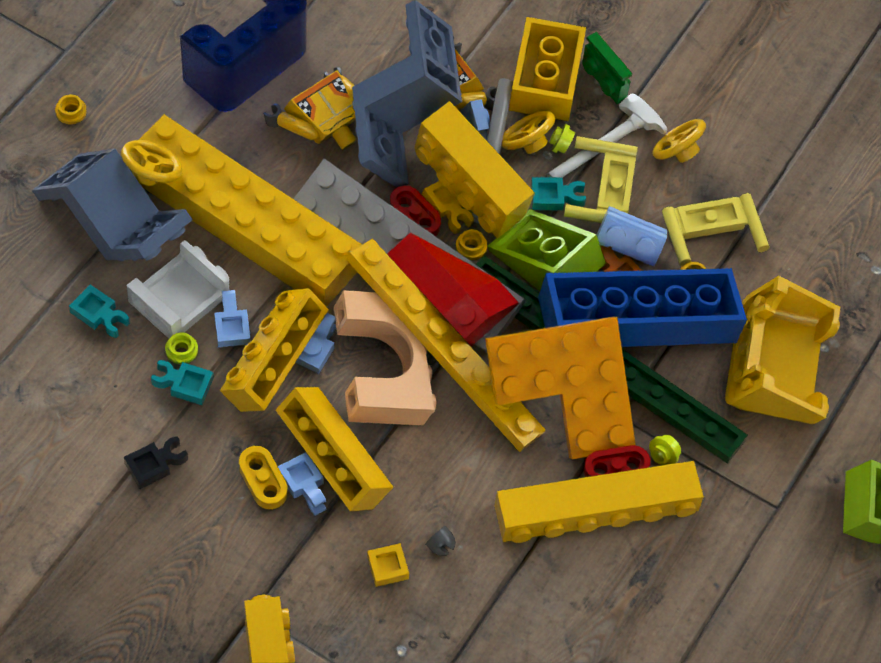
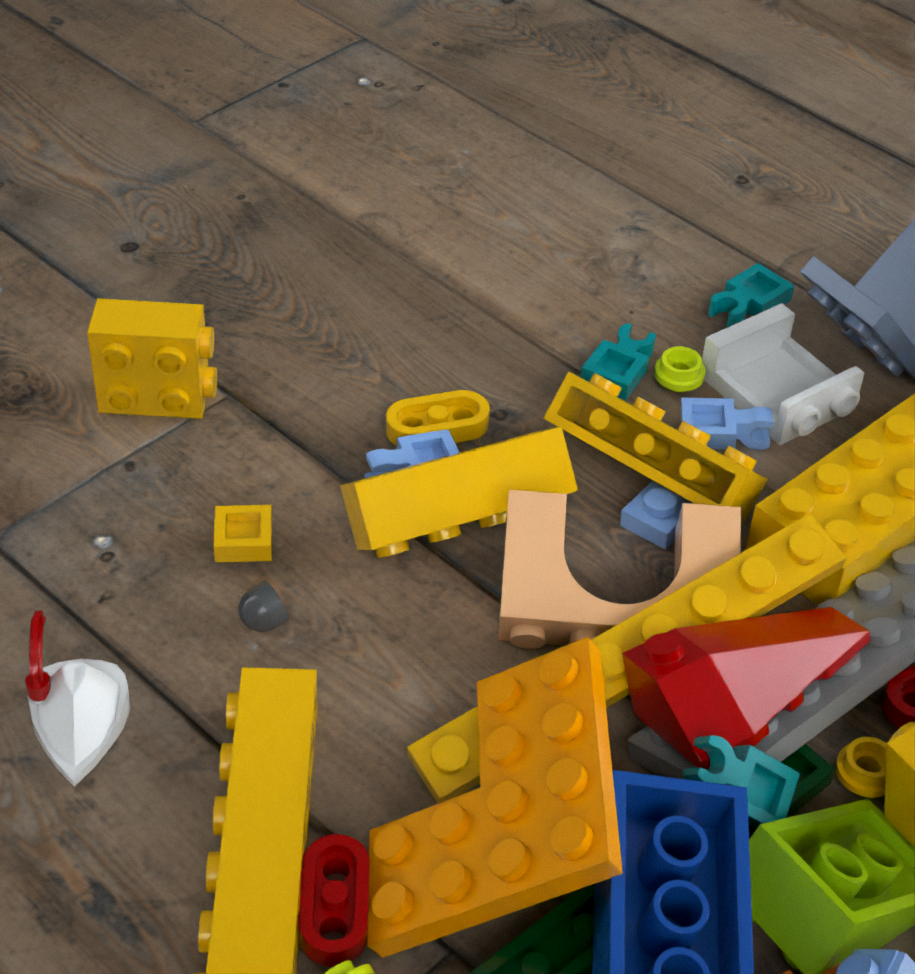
camera: 105 degrees right, 15 degrees down
(151, 464) = (492, 314): black plate -> none
(522, 283) = (767, 780): none -> teal plate
(536, 618) = (74, 706): none -> white piece

